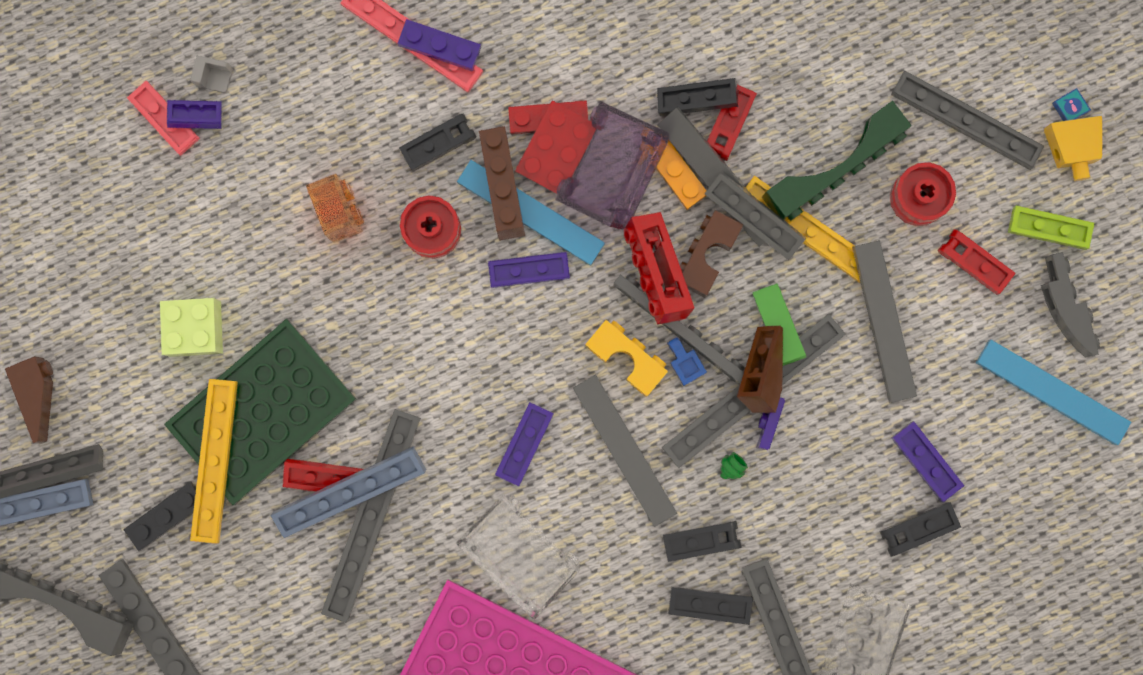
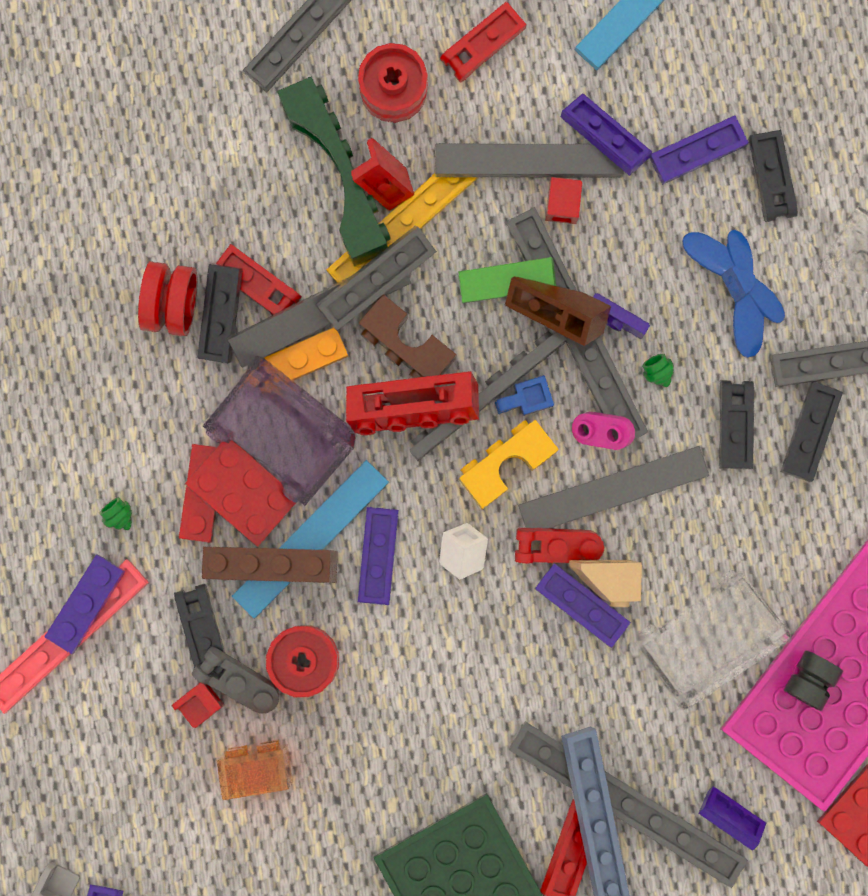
camera: 85 degrees left, 0 degrees up
(377, 603) = (732, 818): none -> dark purple plate
(380, 153) = (199, 704): none -> red panel
(403, 178) = (237, 681): none -> dark grey plate
(502, 645) = (813, 680): none -> pearl dark grey wheel
(516, 54) = (117, 514): none -> green plate
(547, 337) = (463, 551): none -> white panel
(550, 462) = (611, 579): none -> tan slope
(568, 414) = (558, 545): none -> red plate
(671, 428) = (601, 428): none -> dark pink plate
(699, 52) = (167, 298): none -> red wheel
(813, 530) = (751, 296): none -> blue piece
(841, 203) = (383, 177): none -> red panel
(857, 357) = (563, 200): none -> panel
(922, 380) = (606, 134): none -> dark purple tile

